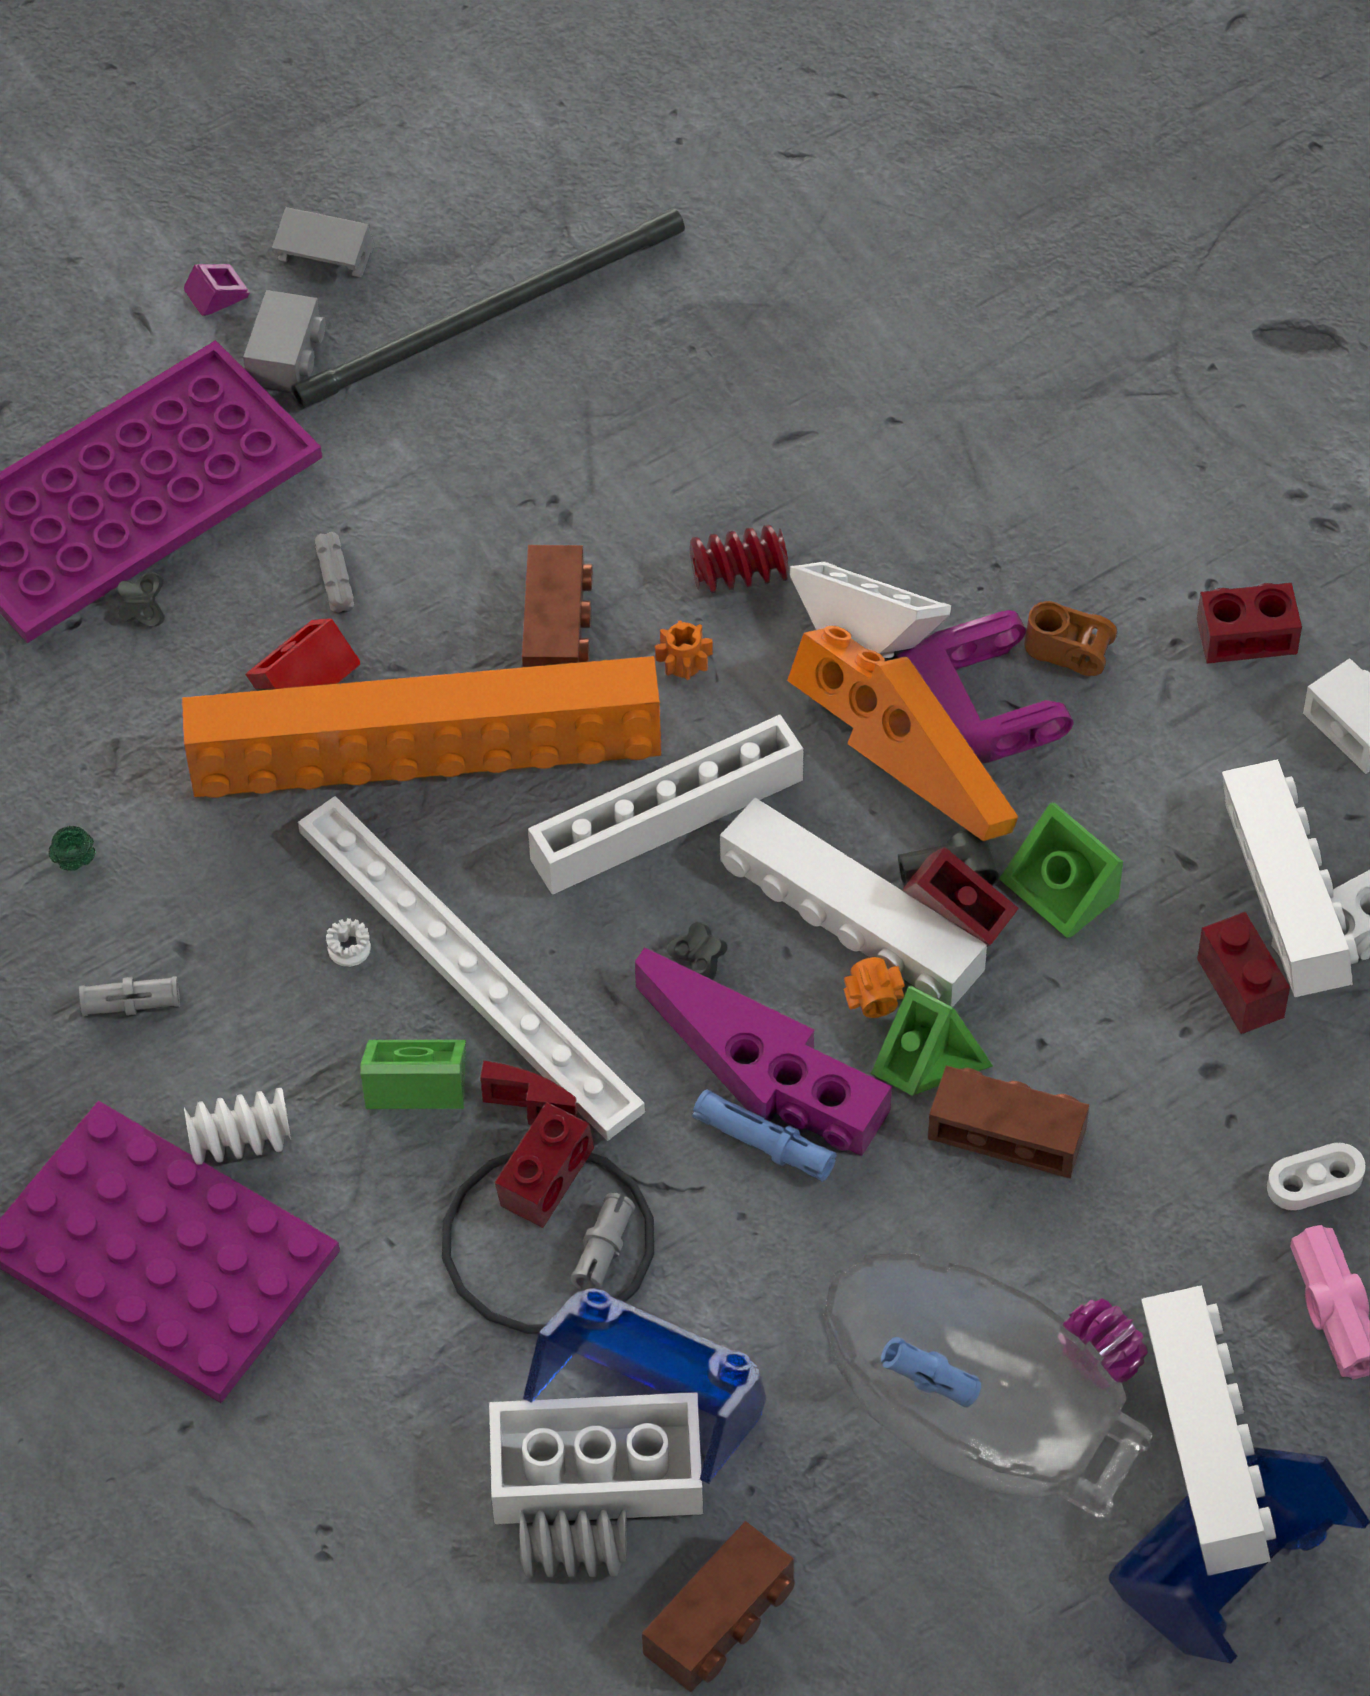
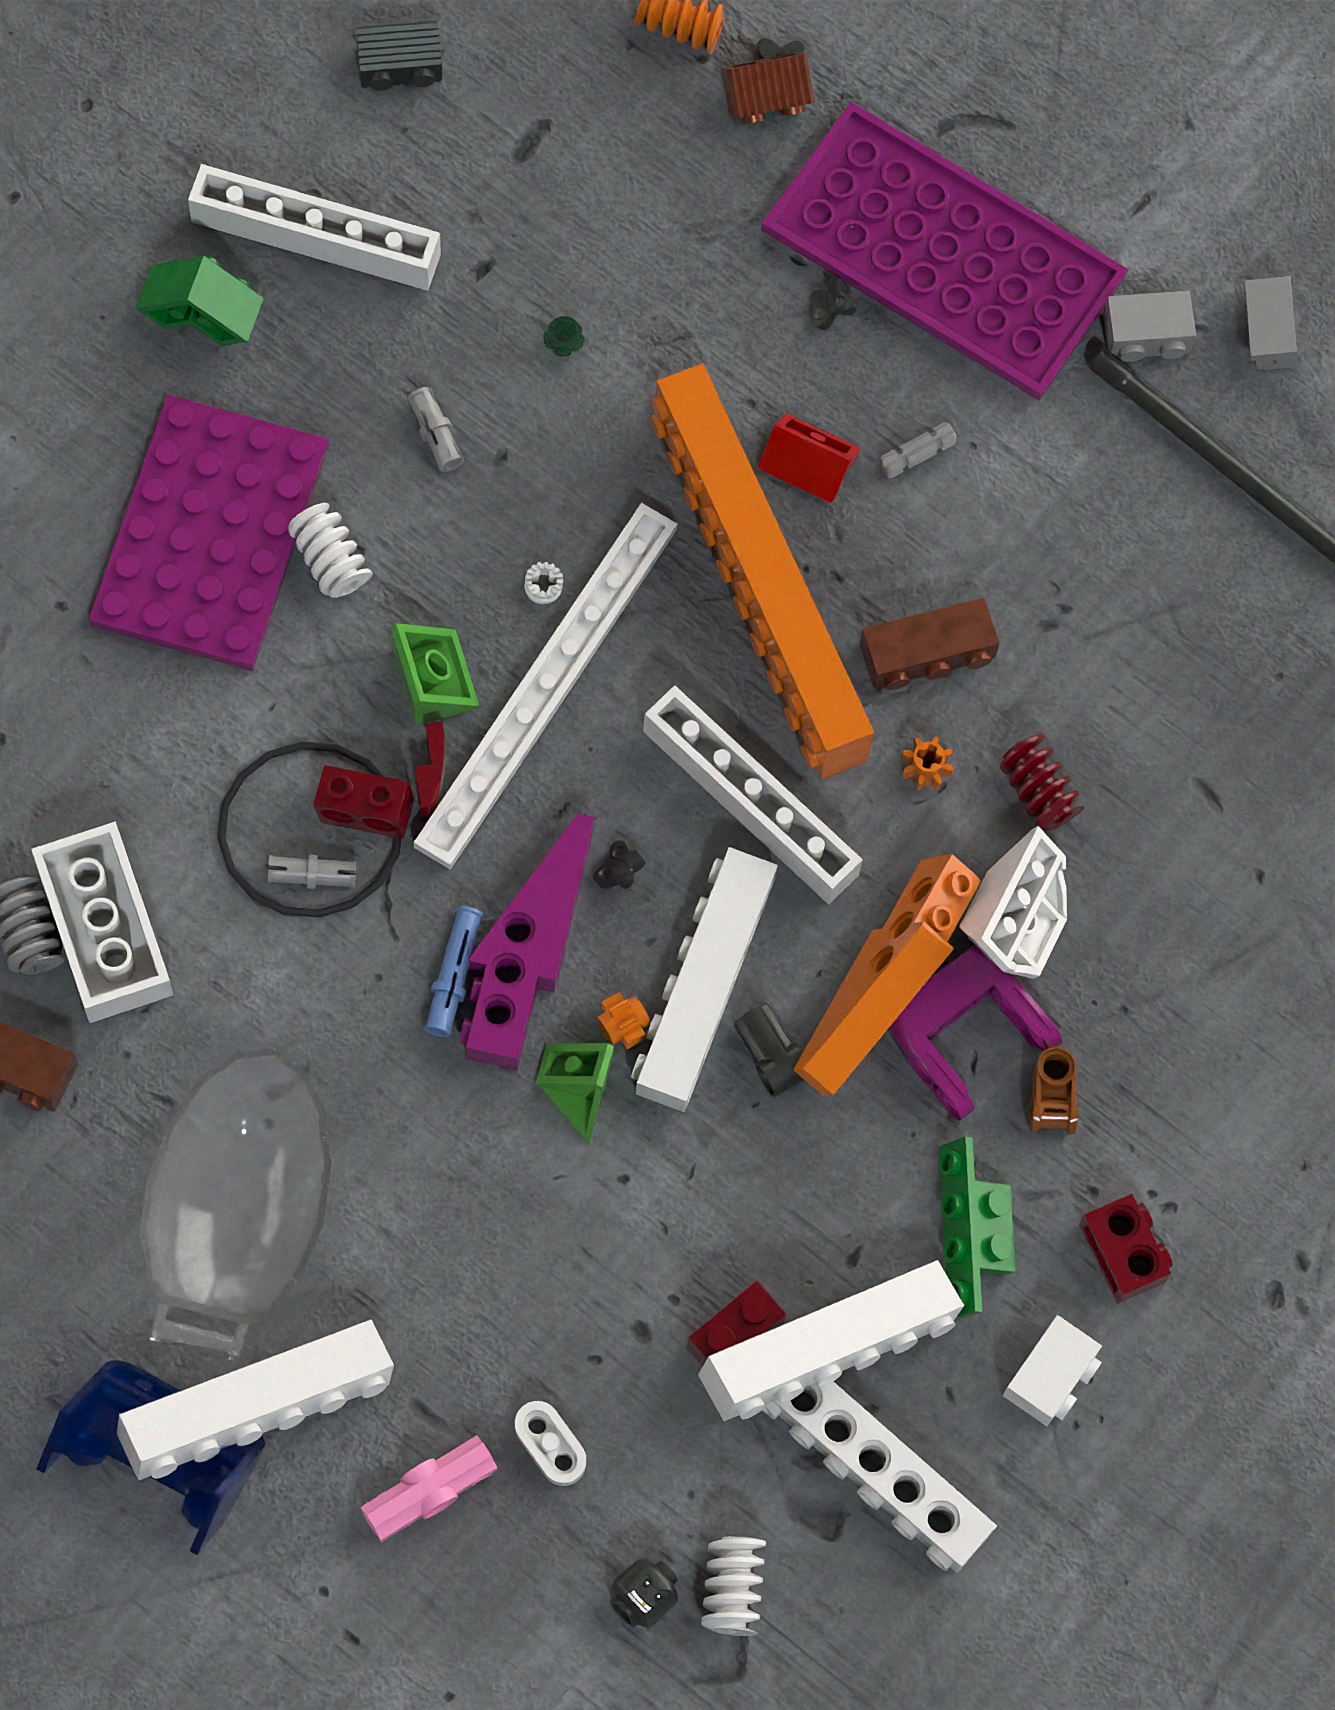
camera: 65 degrees right, 15 degrees up
(214, 287) = (1197, 251): magenta slope -> none
(657, 1356) = (190, 1004): clear blue windscreen -> none
(930, 1372) = (244, 1162): medium blue pin -> none
(961, 896) = (724, 1066): dark red brick -> none
(1008, 1121) = (526, 1168): copper brick -> none
(1064, 872) = (791, 1150): bright green slope -> none
(1111, 1336) = (323, 1299): magenta gear -> none
(1179, 742) = (974, 1225): none -> green bracket

